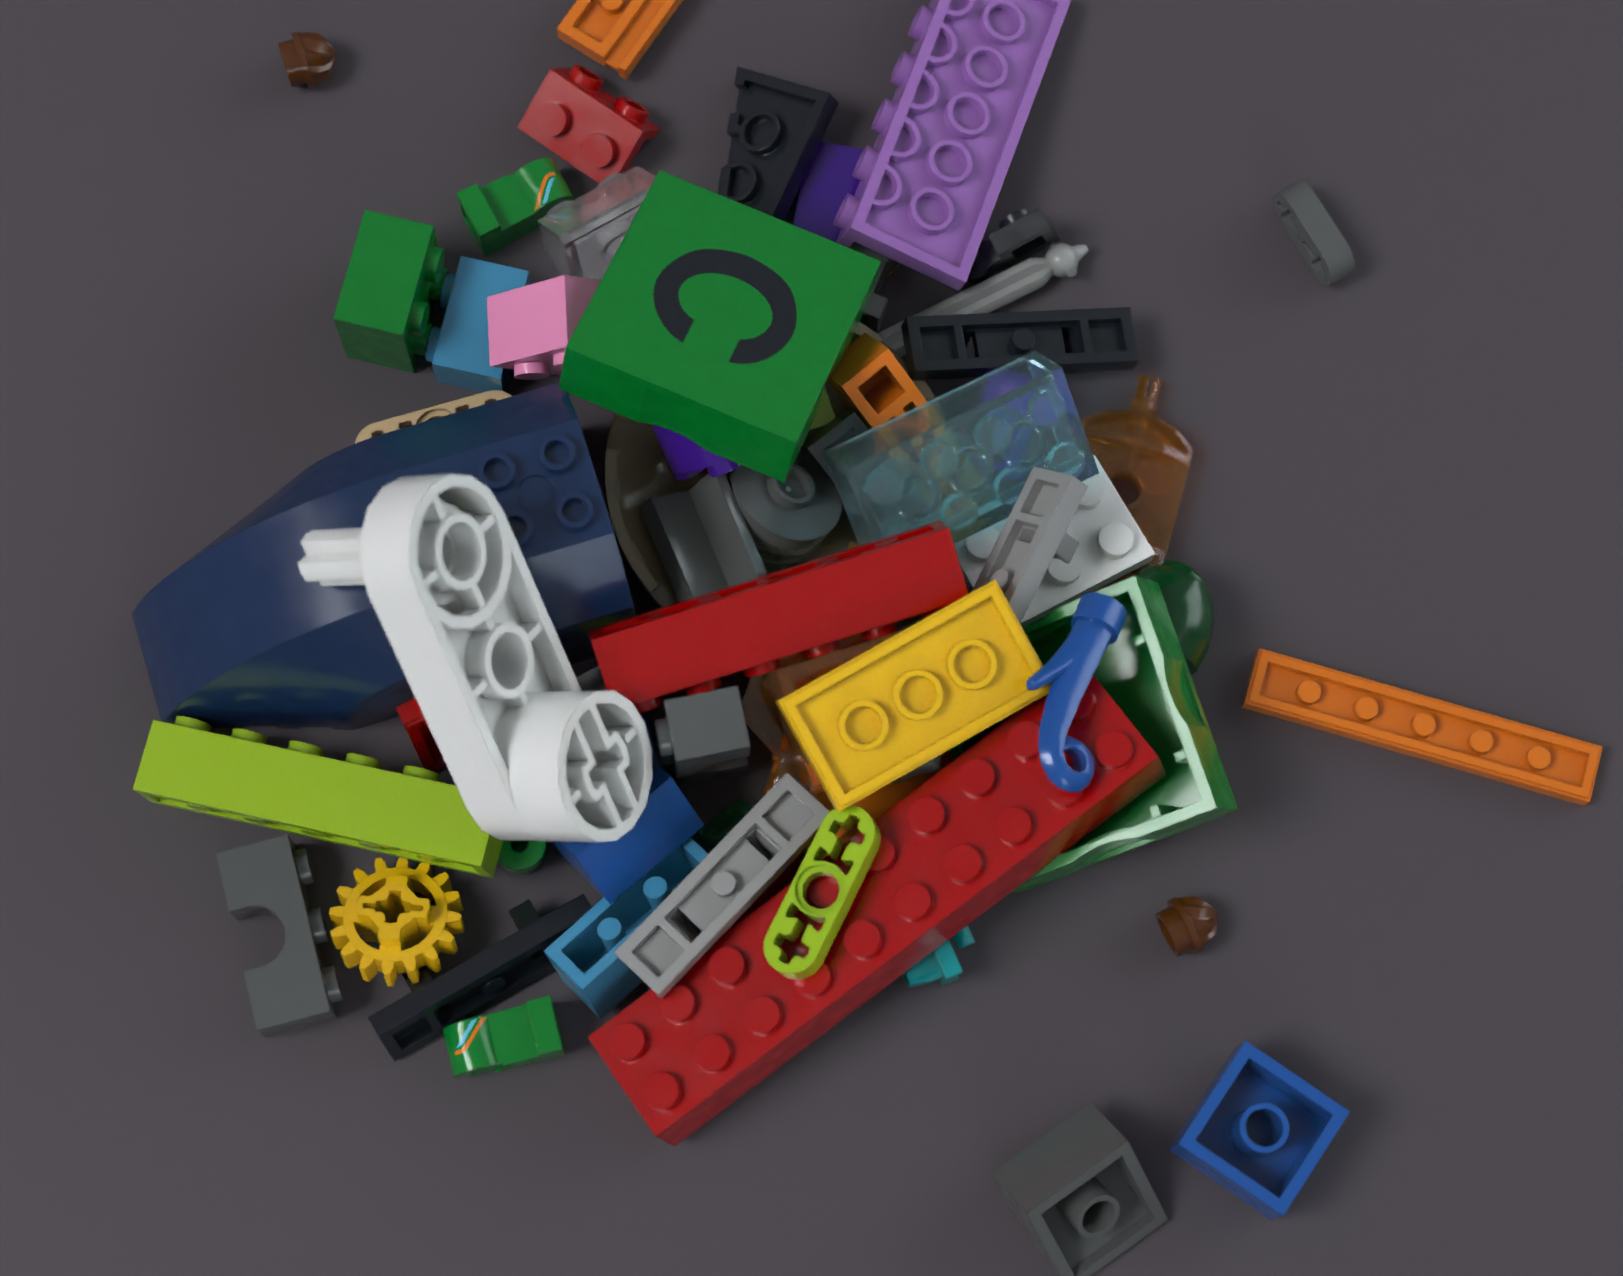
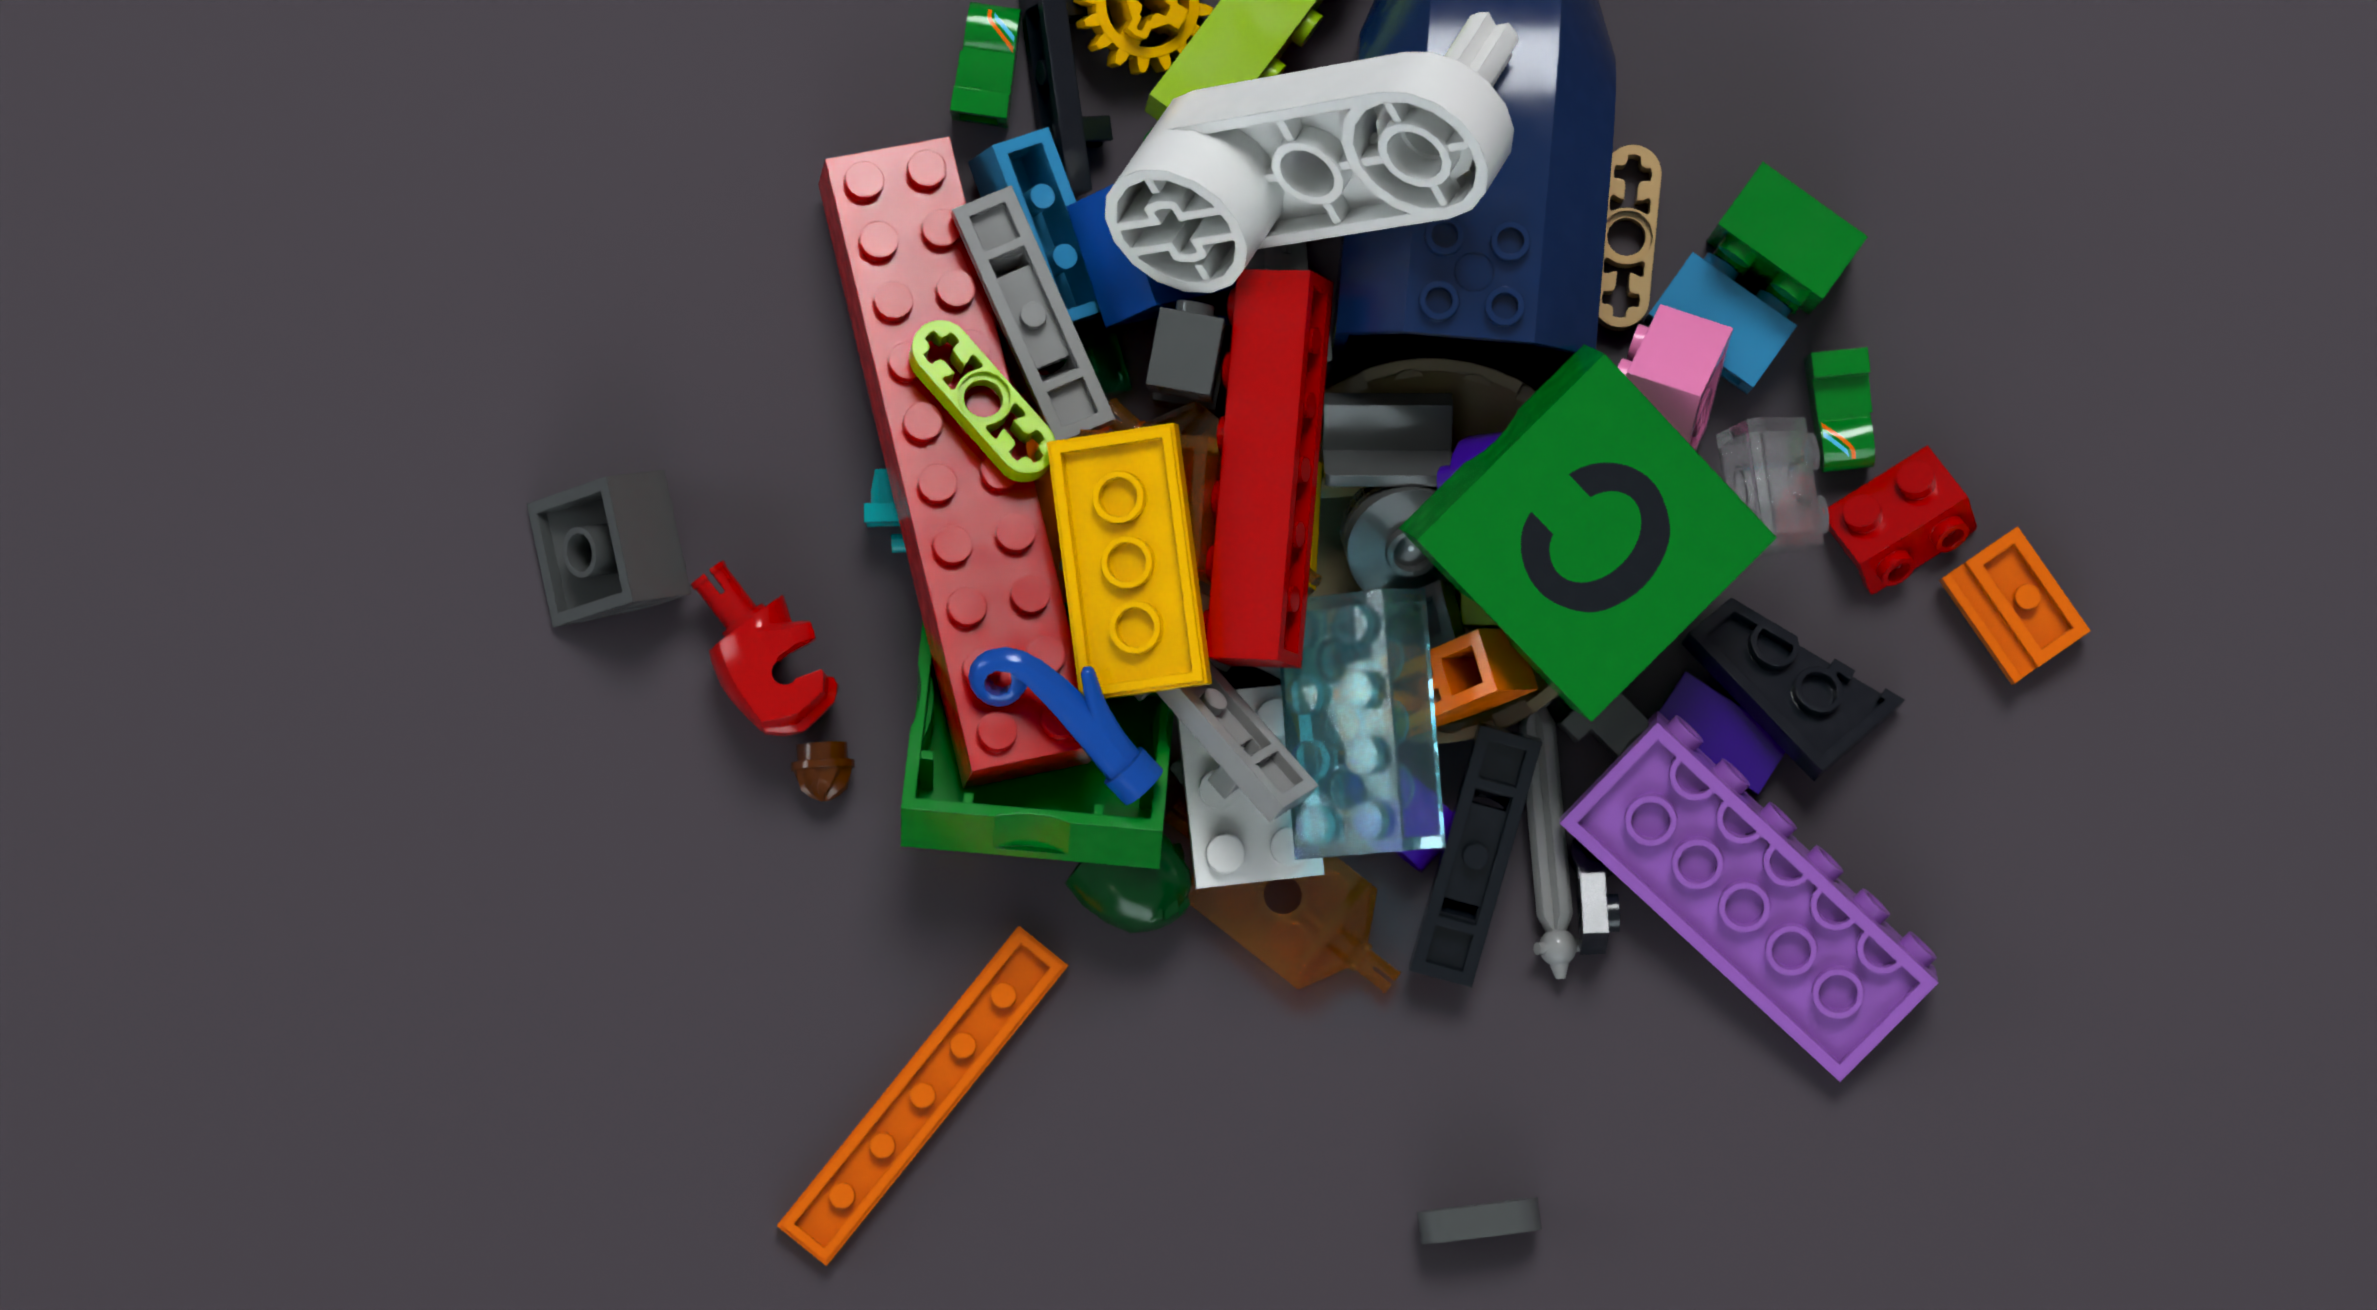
camera: 115 degrees right, 10 degrees up
(307, 58) = (2088, 257): reddish brown plate -> none
(1116, 1020) = (750, 649): none -> red piece
(1259, 1130) = (594, 741): blue brick -> none

